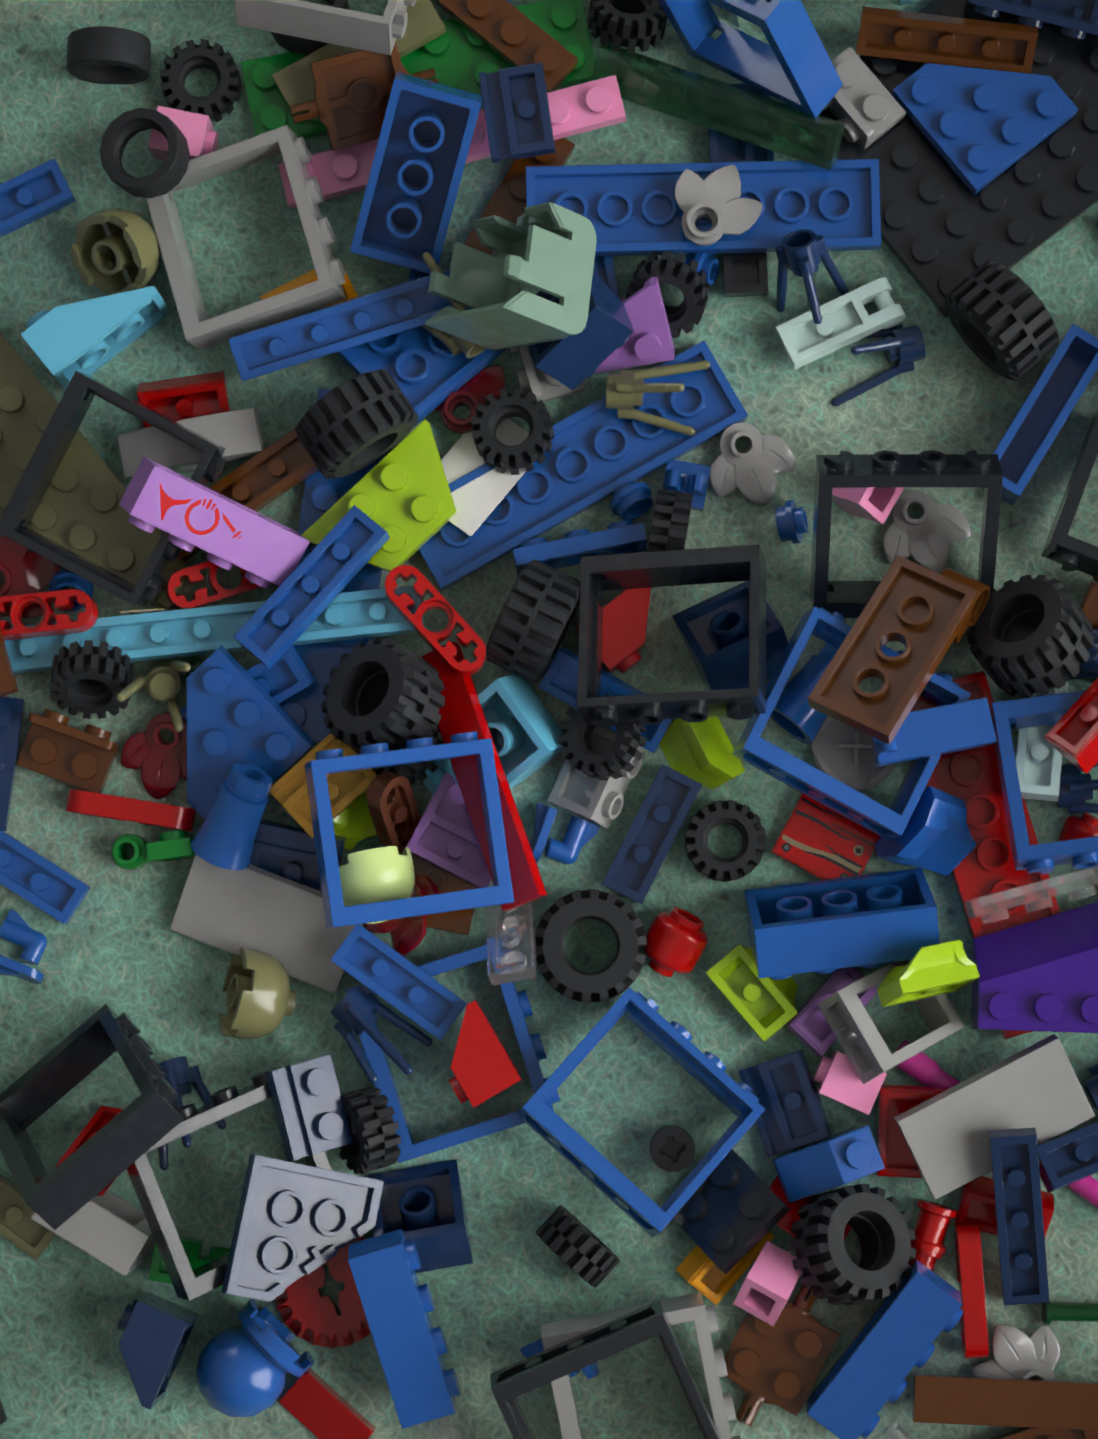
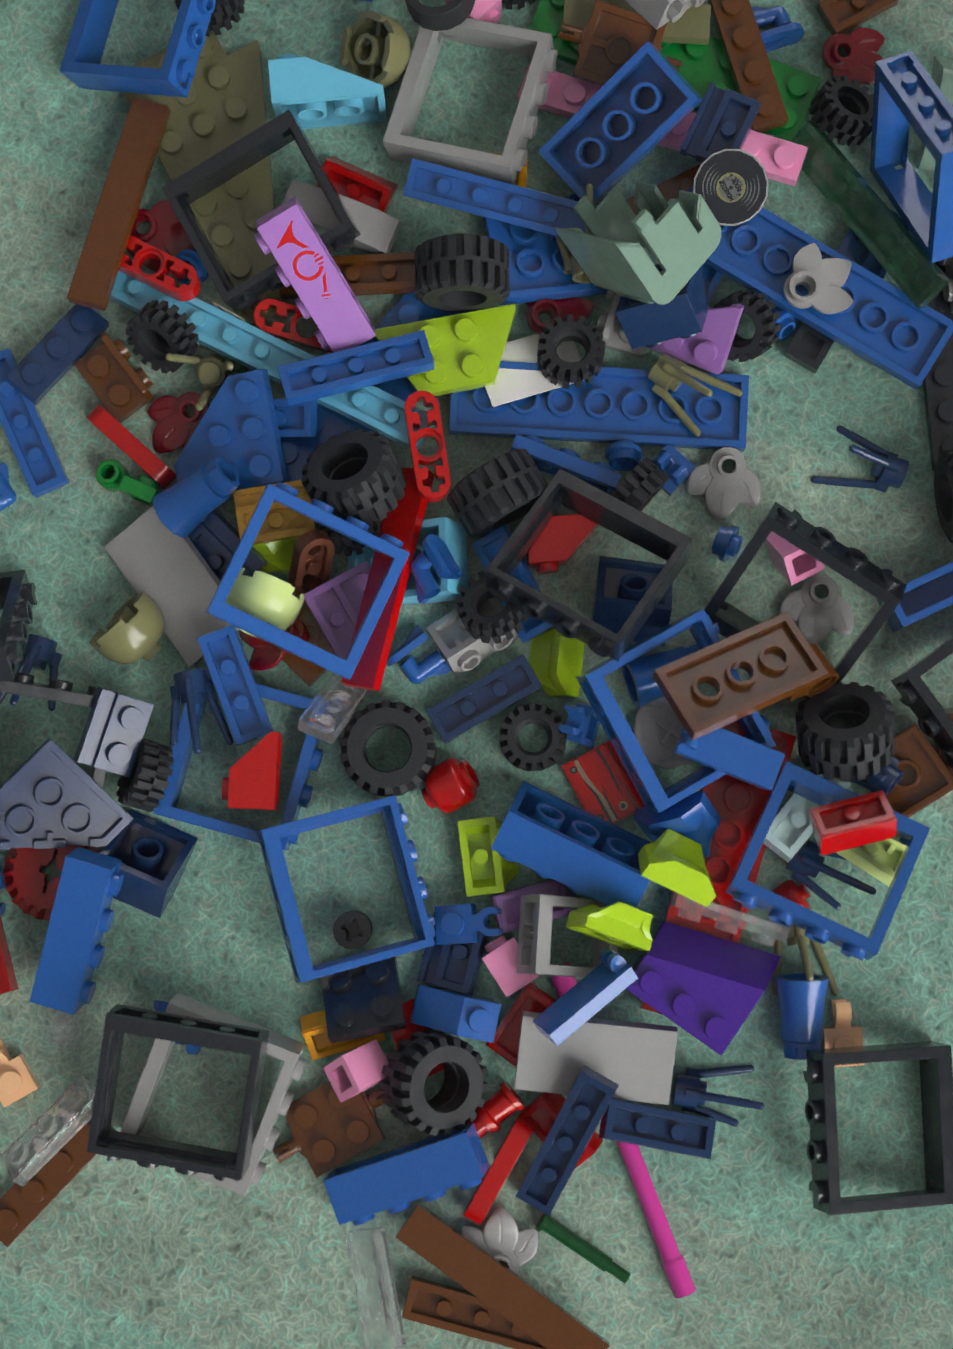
camera: 30 degrees right, 0 degrees up
(515, 722) = (436, 555): none -> blue piece
(567, 166) = (732, 185): none -> black tile
(577, 1246) = (239, 954): black tyre -> none
(765, 797) = (581, 725): none -> blue plate
(776, 1072) = (460, 923): none -> blue plate
(801, 254) = (858, 355): dark blue plant -> none
(842, 323) = (853, 424): light aqua plate -> none
(948, 1063) = (586, 997): none -> blue hinge
(953, 875) = (677, 865): none -> lime slope

